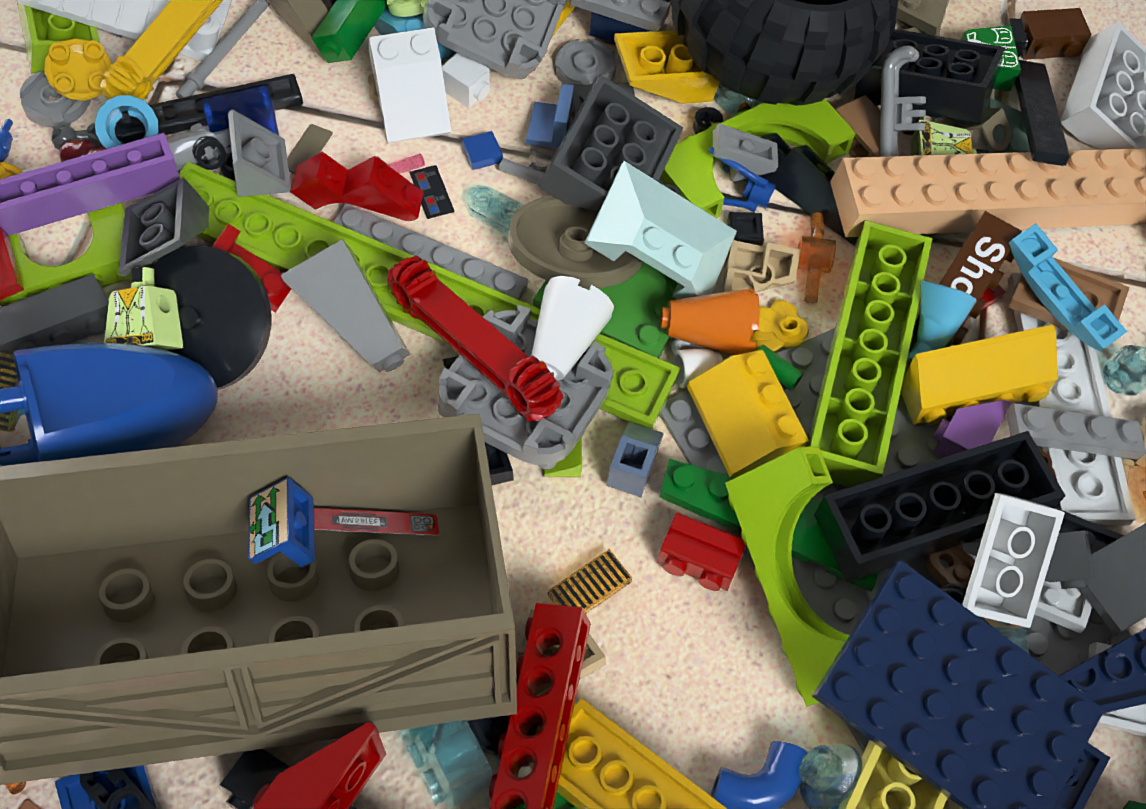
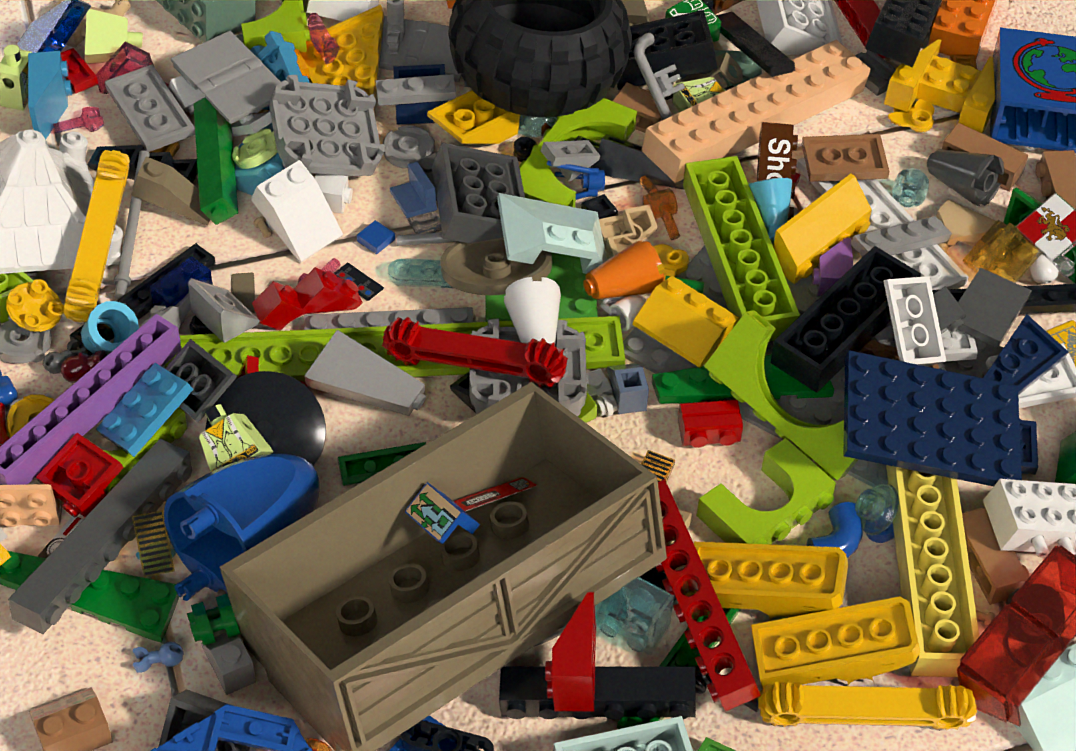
camera: 25 degrees left, 10 degrees down
(89, 234) = (144, 409): none -> dark azure plate
(219, 154) = (188, 320): black bush -> none
(305, 413) = (361, 466): none -> green slope
(600, 441) = (601, 393): none -> white plate
(663, 719) = (795, 474): none -> lime arch
(1060, 294) = (839, 156): medium azure slope -> none

